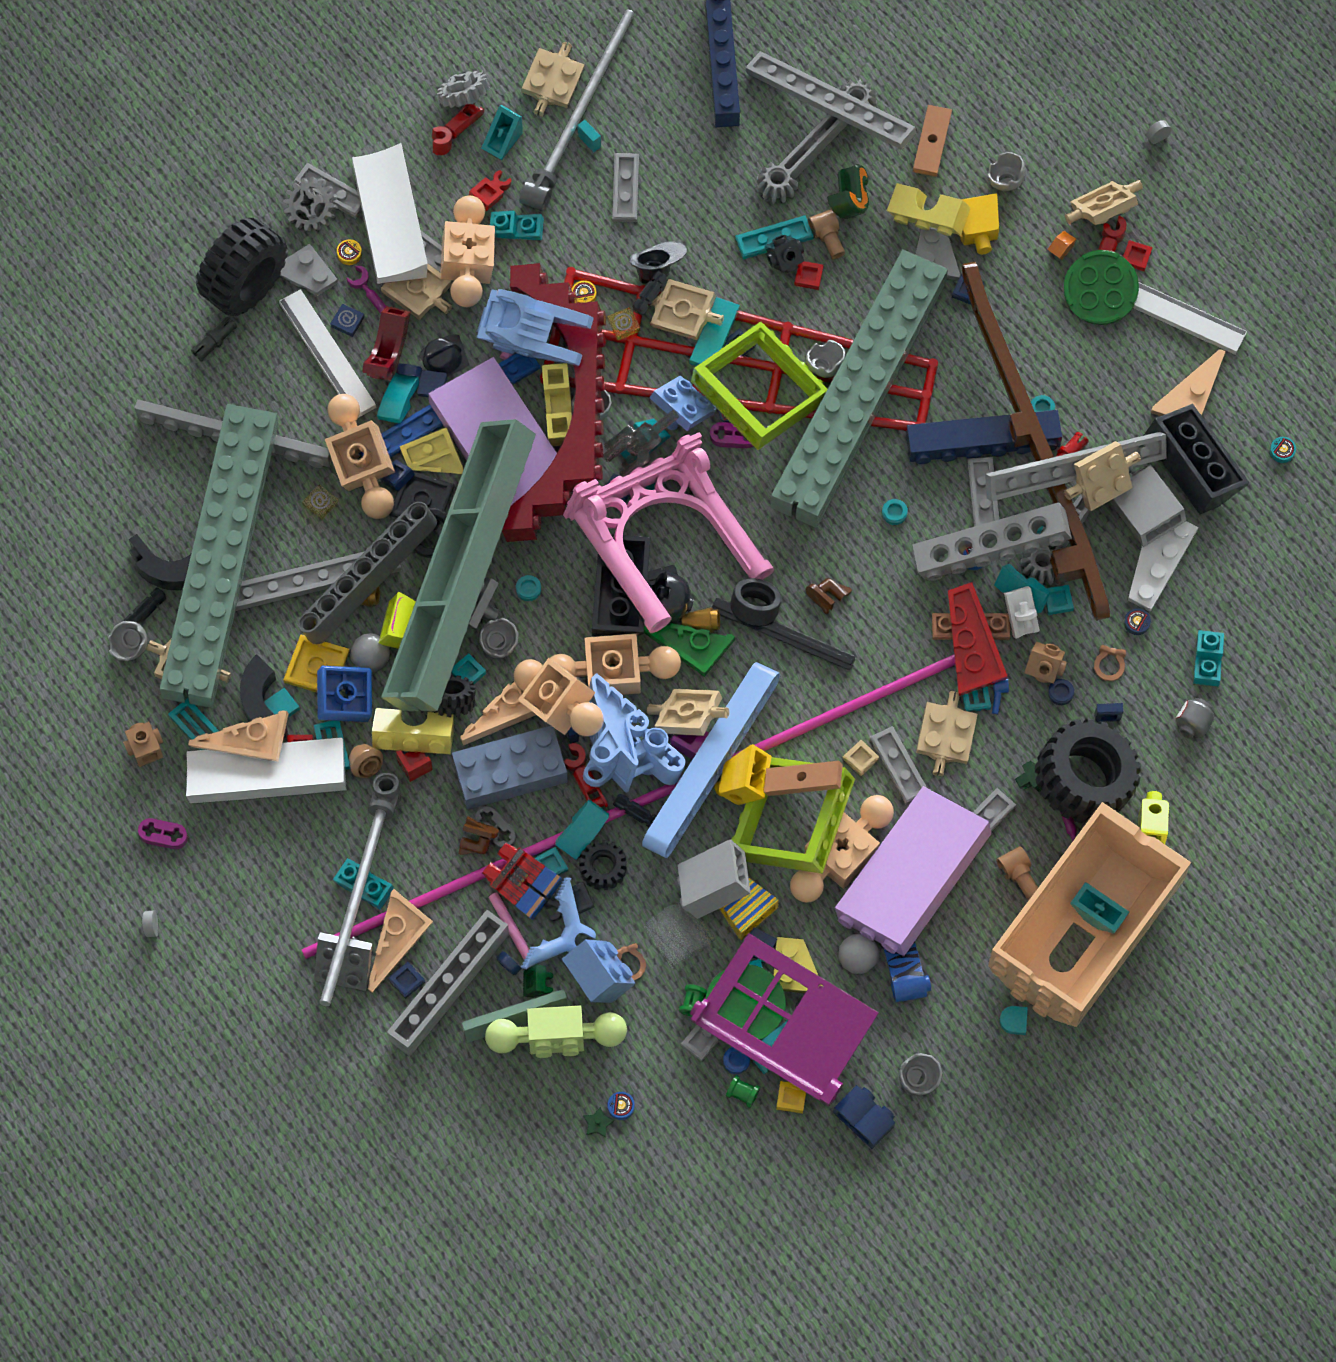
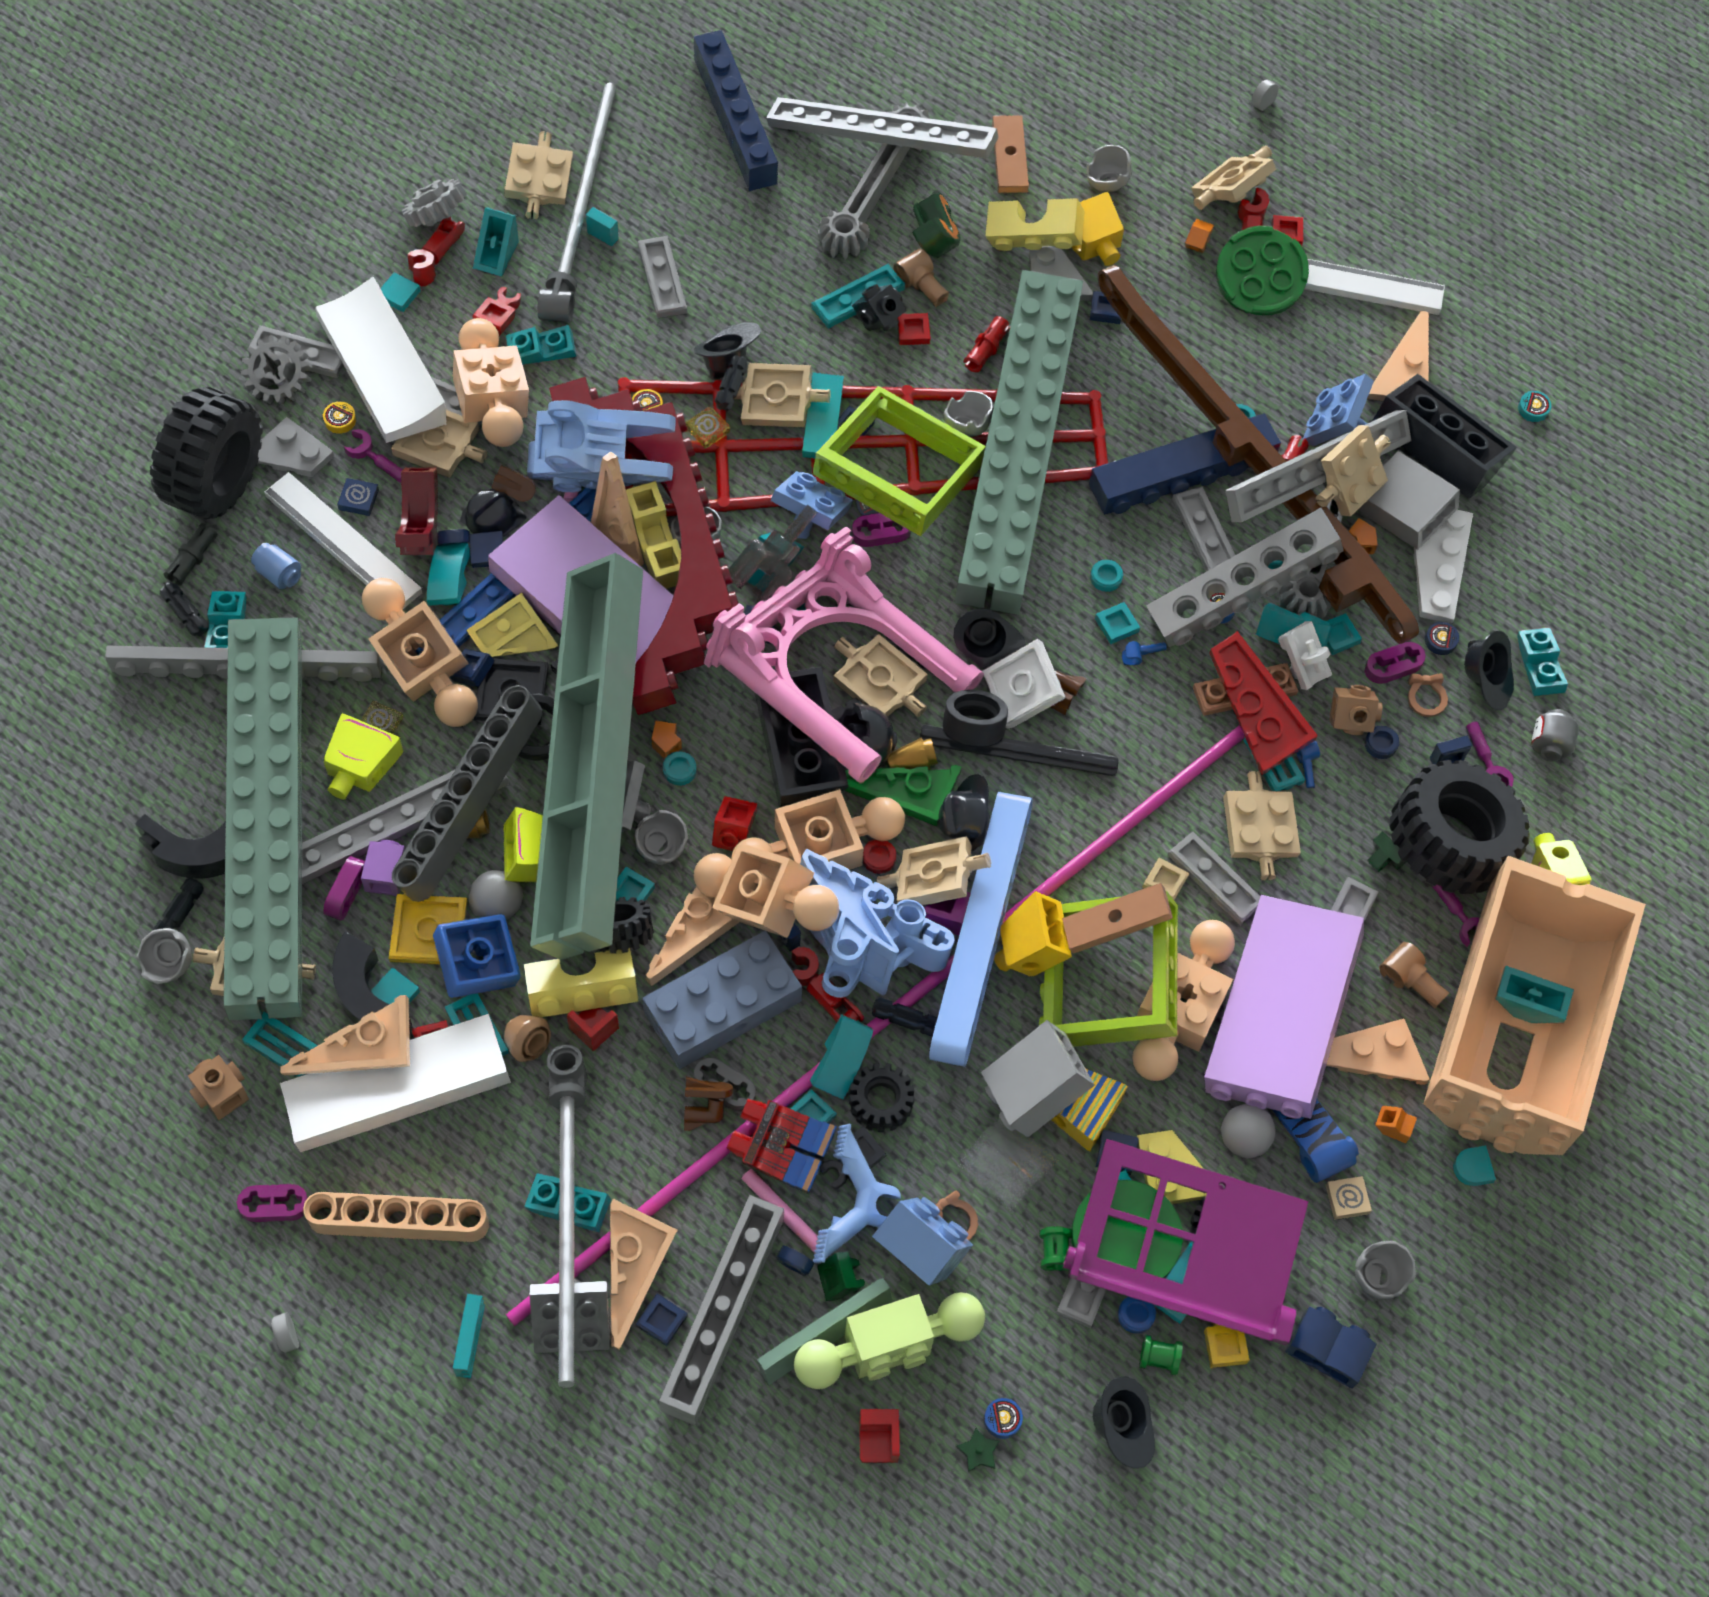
camera: 20 degrees left, 5 degrees down
(199, 381) = (184, 609): none -> black axle
(228, 391) = (223, 607): none -> teal slope
(235, 855) = (381, 1208): none -> light nougat beam
(265, 621) = (344, 889): none -> magenta beam
(272, 957) = (469, 1336): none -> teal tile
(274, 363) = (276, 565): none -> medium blue brick
(292, 611) = (379, 866): none -> medium lavender brick
(298, 525) = (359, 756): none -> neon yellow torso
(419, 156) = (400, 291): none -> teal tile
(464, 337) = (514, 484): none -> reddish brown piece
(524, 563) = (665, 738): none -> orange piece
(529, 382) = (612, 509): none -> light nougat wing
(532, 1094) = (879, 1435): none -> red panel
(555, 638) = (733, 822): none -> red bracket
(655, 689) = (879, 856): none -> red tile
(696, 553) = (880, 676): none -> tan plate
(702, 1128) = (1125, 1422): none -> black piece
(725, 671) = (966, 811): none -> black piece
(786, 544) = (986, 637): none -> black piece
(801, 583) = (1025, 682): none -> white tile
(861, 301) = (987, 344): none -> red pin
(890, 551) = (1117, 623): none -> teal tile
(895, 576) = (1133, 652): none -> blue hand
(915, 1018) = (1348, 1197): none -> tan tile
(967, 975) = (1395, 1123): none -> orange piece
(976, 921) = (1381, 1051): none -> light nougat wing
(1091, 627) = (1393, 656): none -> magenta beam
(1103, 526) = (1365, 535): none -> orange piece
(1118, 421) = (1338, 410): none -> medium blue plate
(1137, 720) = (1484, 753): none -> magenta piece
(1164, 656) = (1490, 667): none -> black piece

